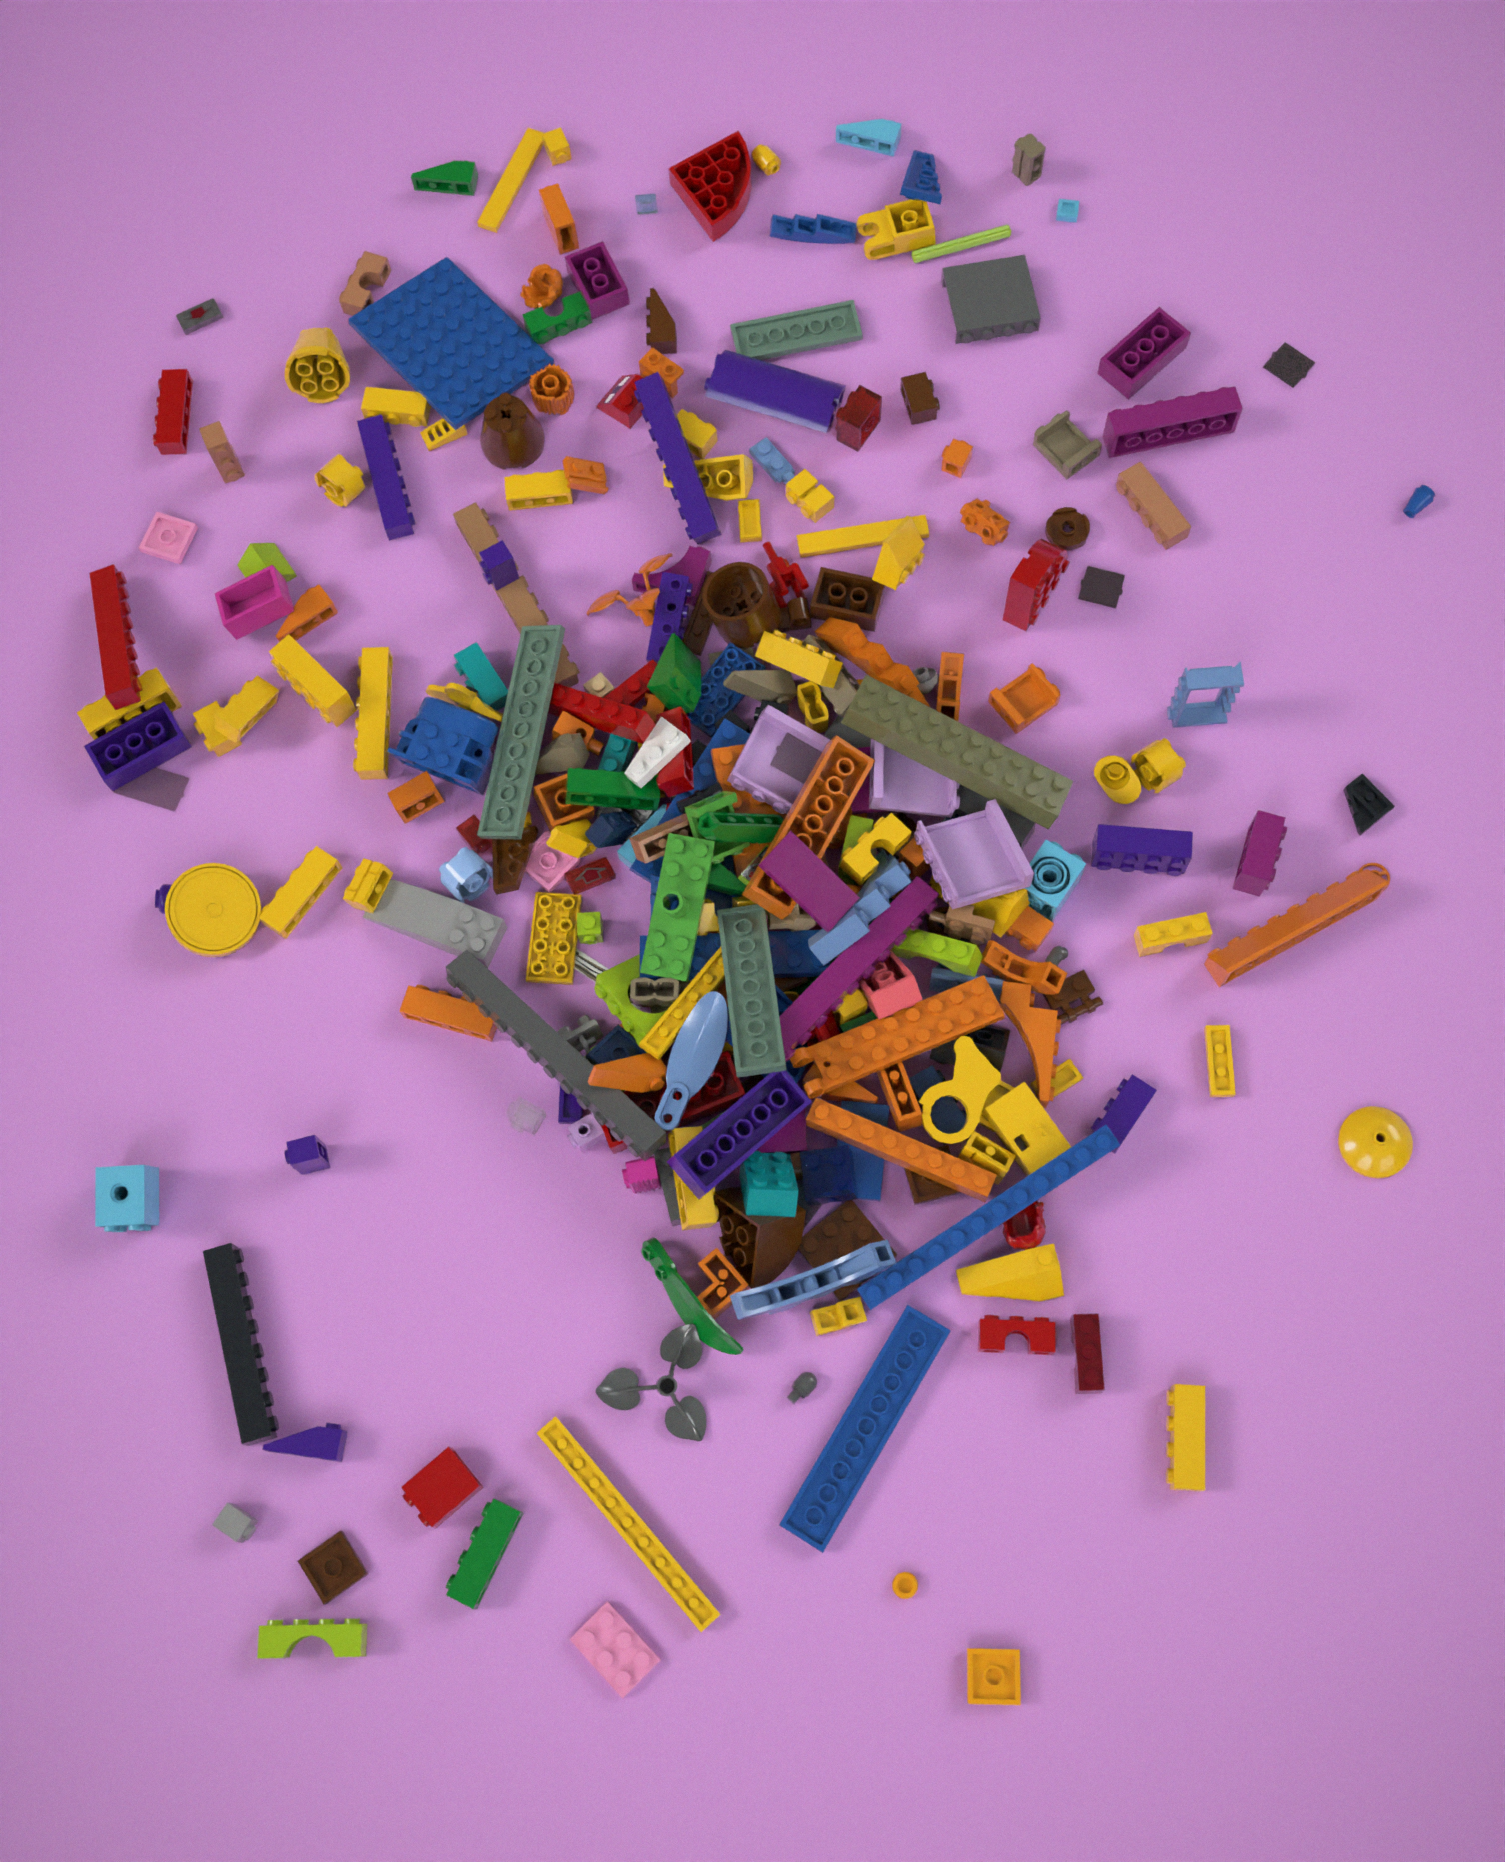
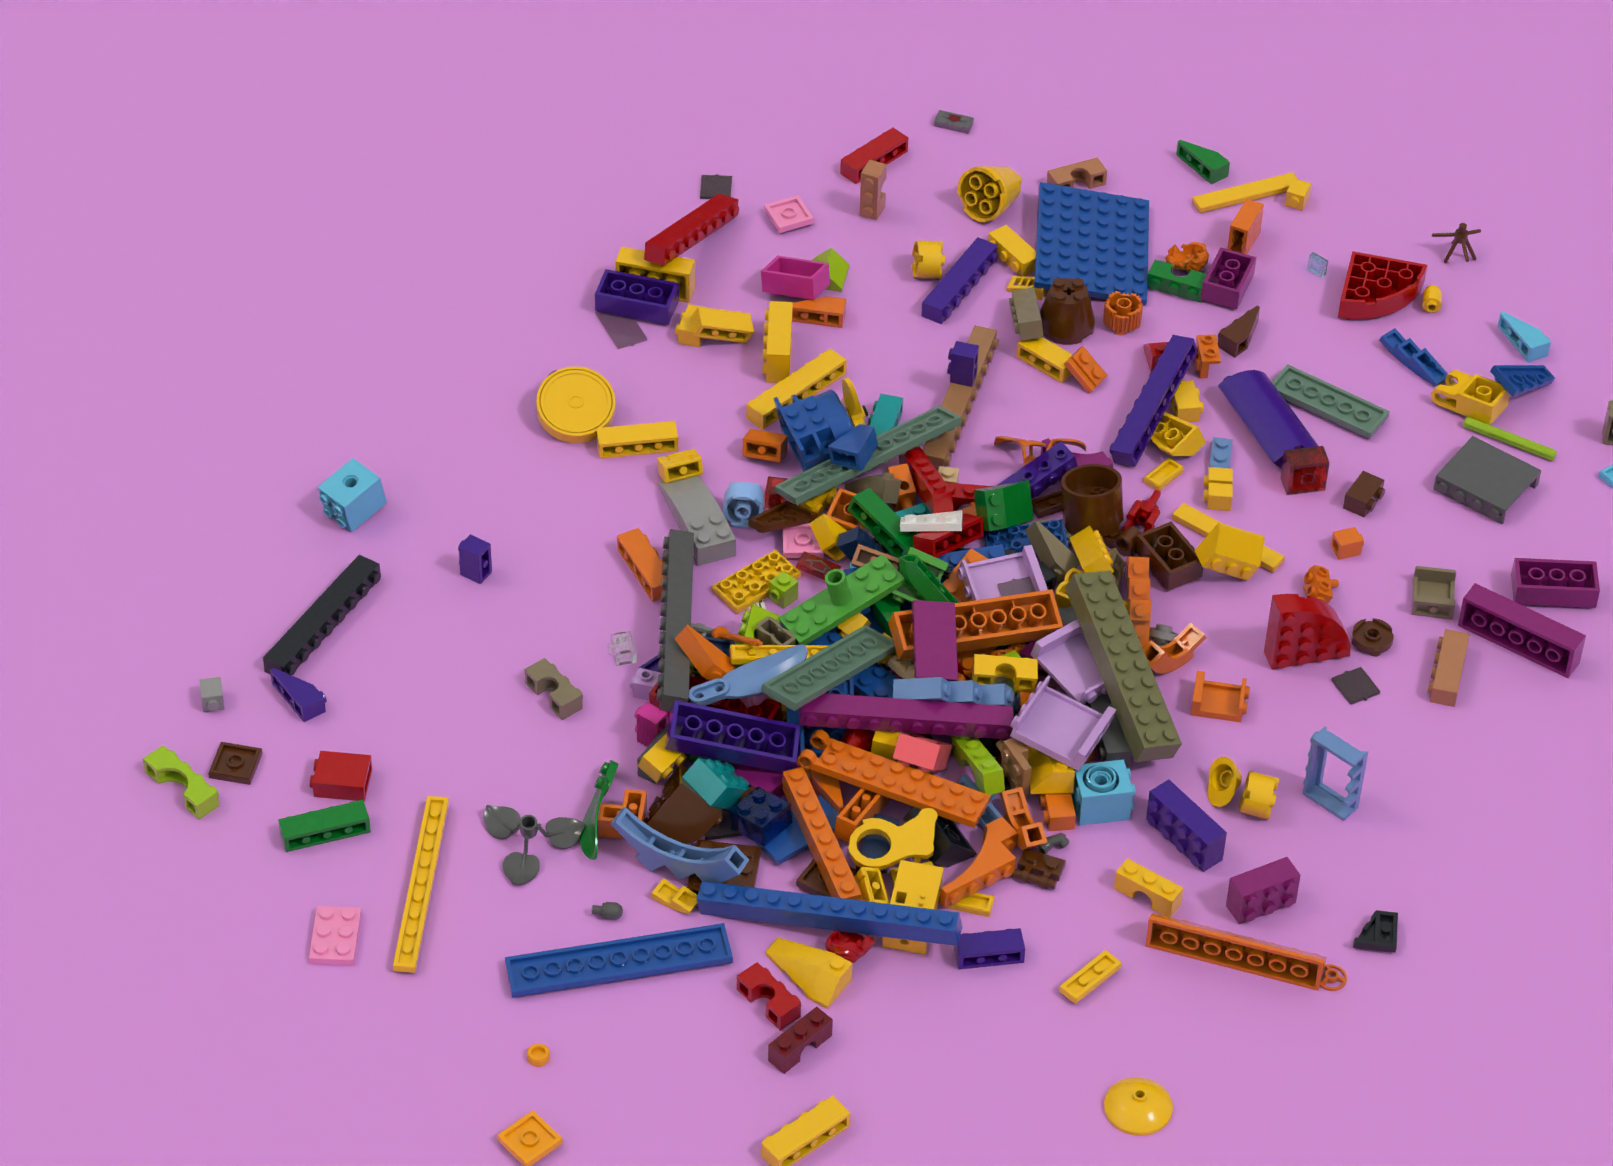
camera: 40 degrees right, 25 degrees down
(72, 565) = (715, 184): none -> clear smoke piece
(483, 463) = (1026, 314): none -> dark tan brick
(495, 1210) = (565, 698): none -> dark tan arch
(510, 738) = (854, 447): none -> blue slope
(598, 1027) = (722, 633): none -> orange piece
(732, 80) = (1461, 237): none -> reddish brown plant

